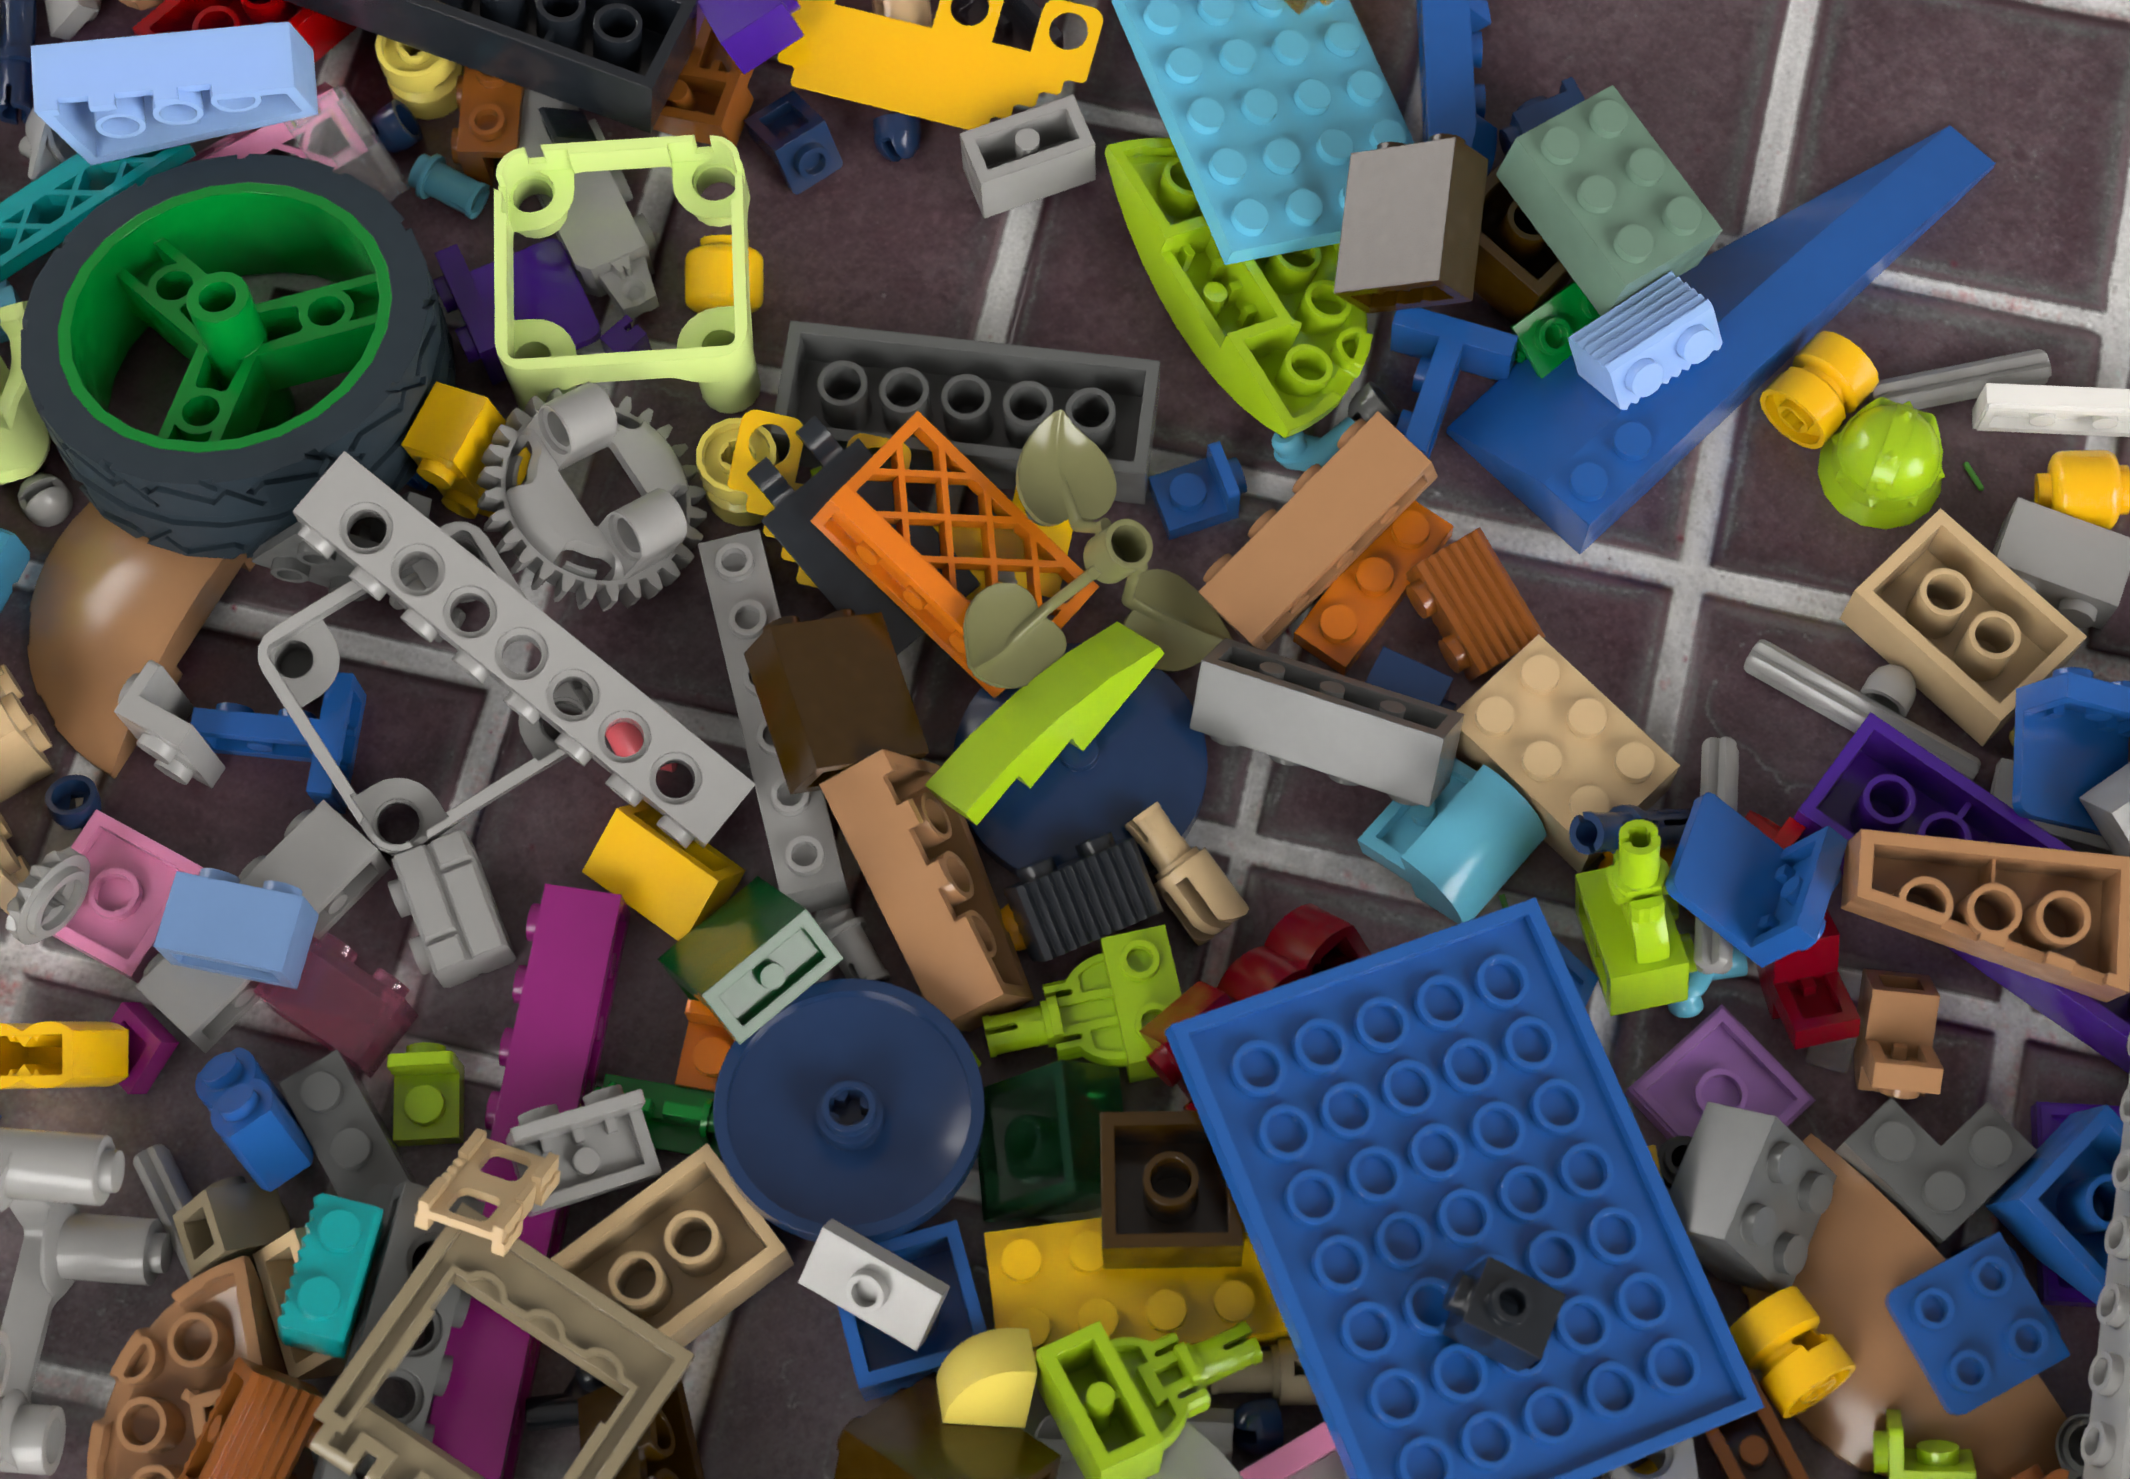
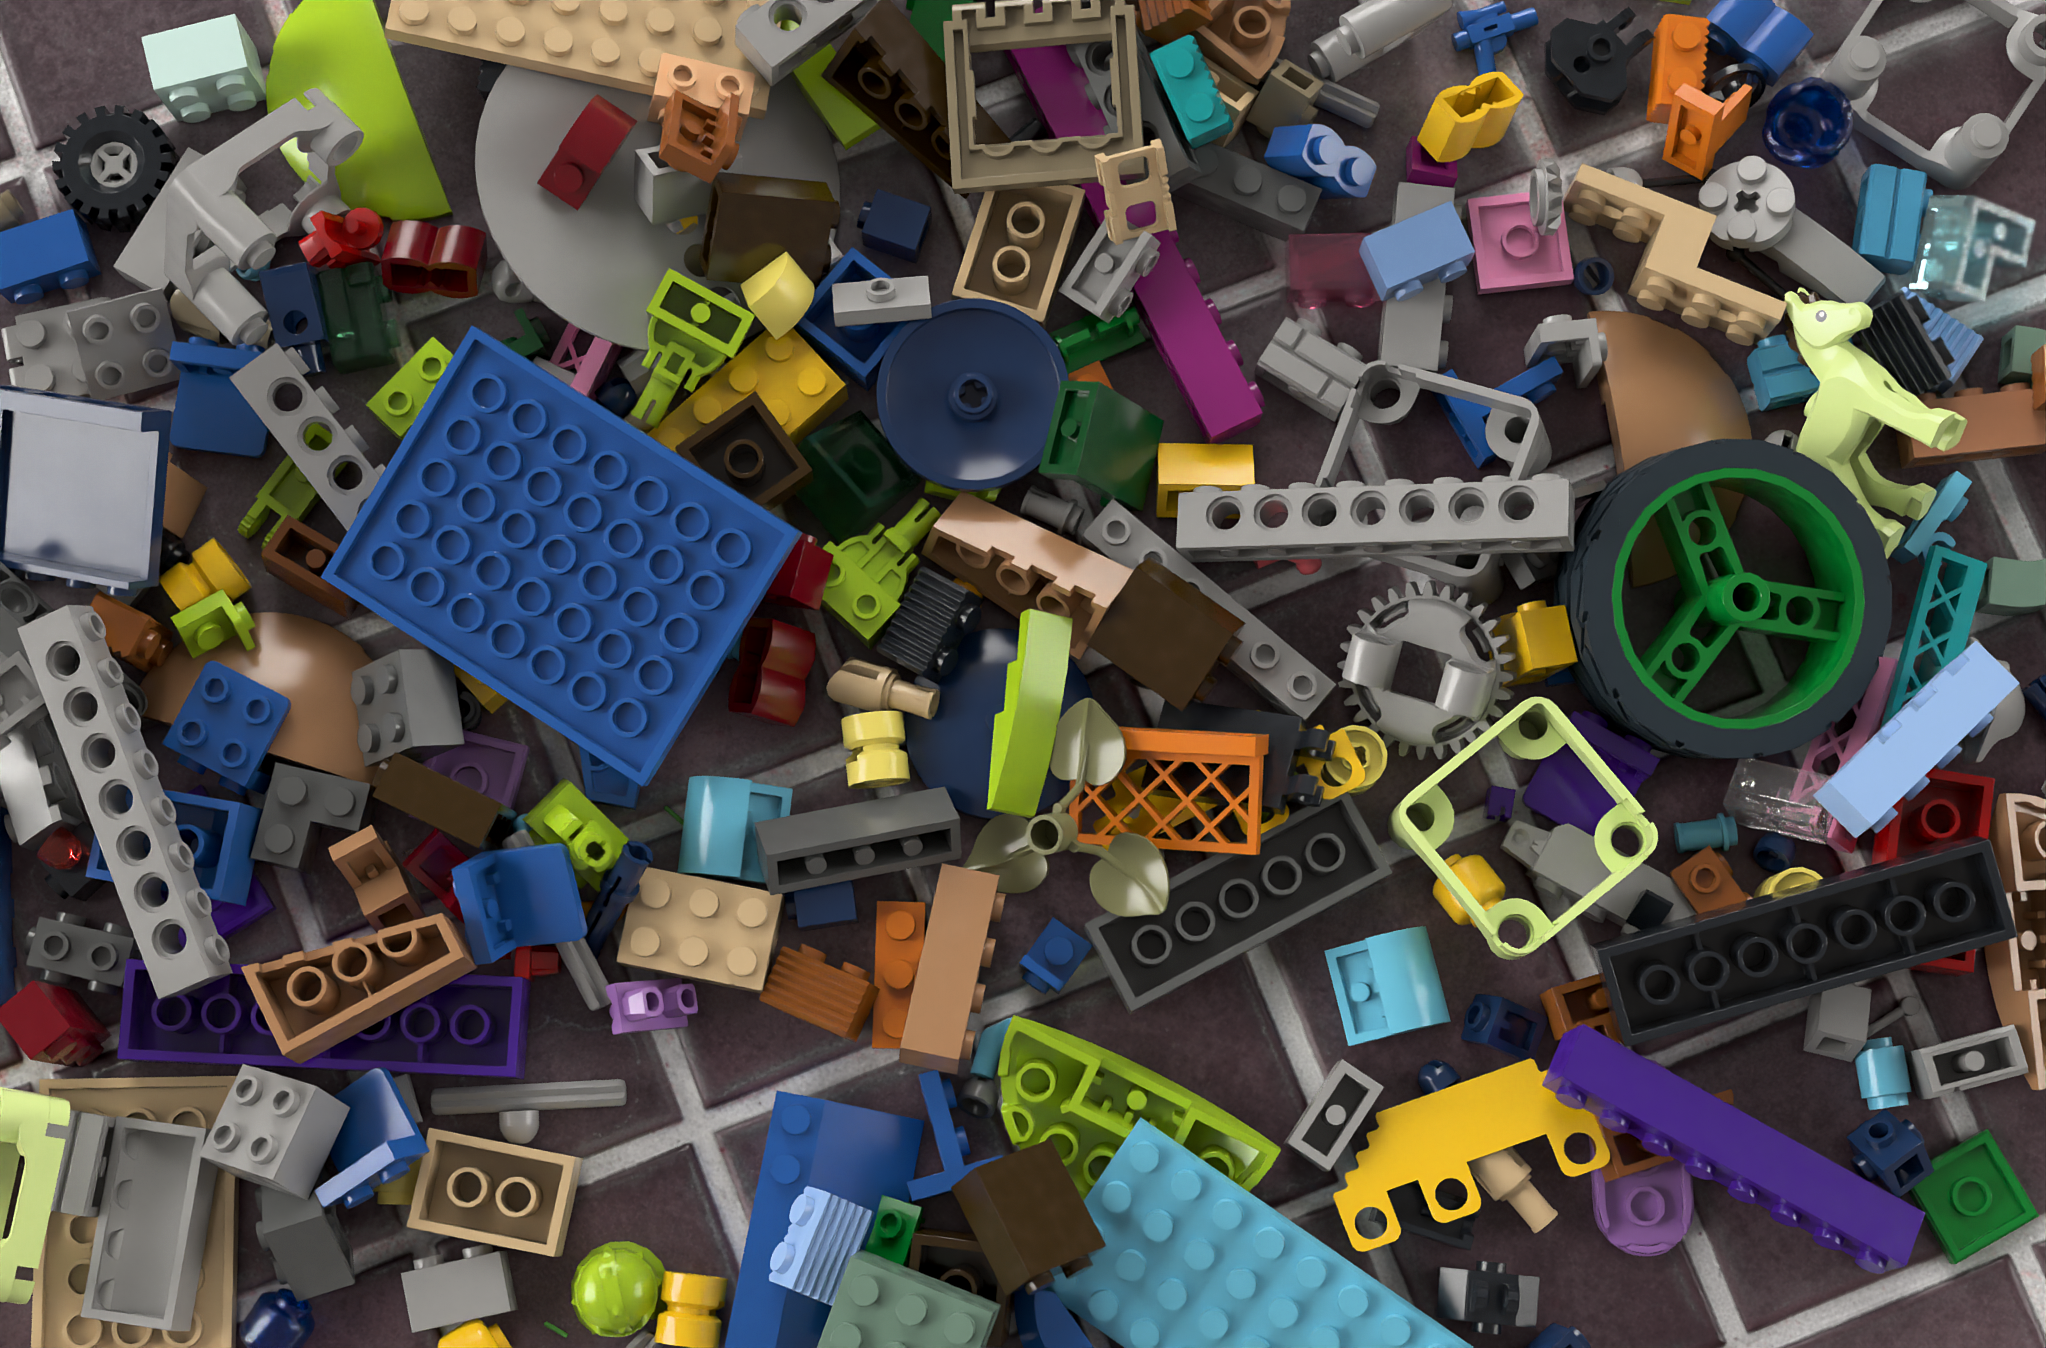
camera: 140 degrees right, 10 degrees up
(427, 1095) = (1238, 256): lime bracket -> none
(787, 1405) = (895, 225): none -> dark blue brick
(878, 243) = (1387, 985): none -> medium azure brick
(1241, 809) = (875, 749): none -> light yellow wheel
(1501, 1313) = (496, 501): black brick -> none
(1672, 707) = (650, 1005): none -> medium lavender hips
(1772, 1050) = (443, 802): none -> dark brown brick
(1794, 1358) = (347, 637): yellow wheel -> none

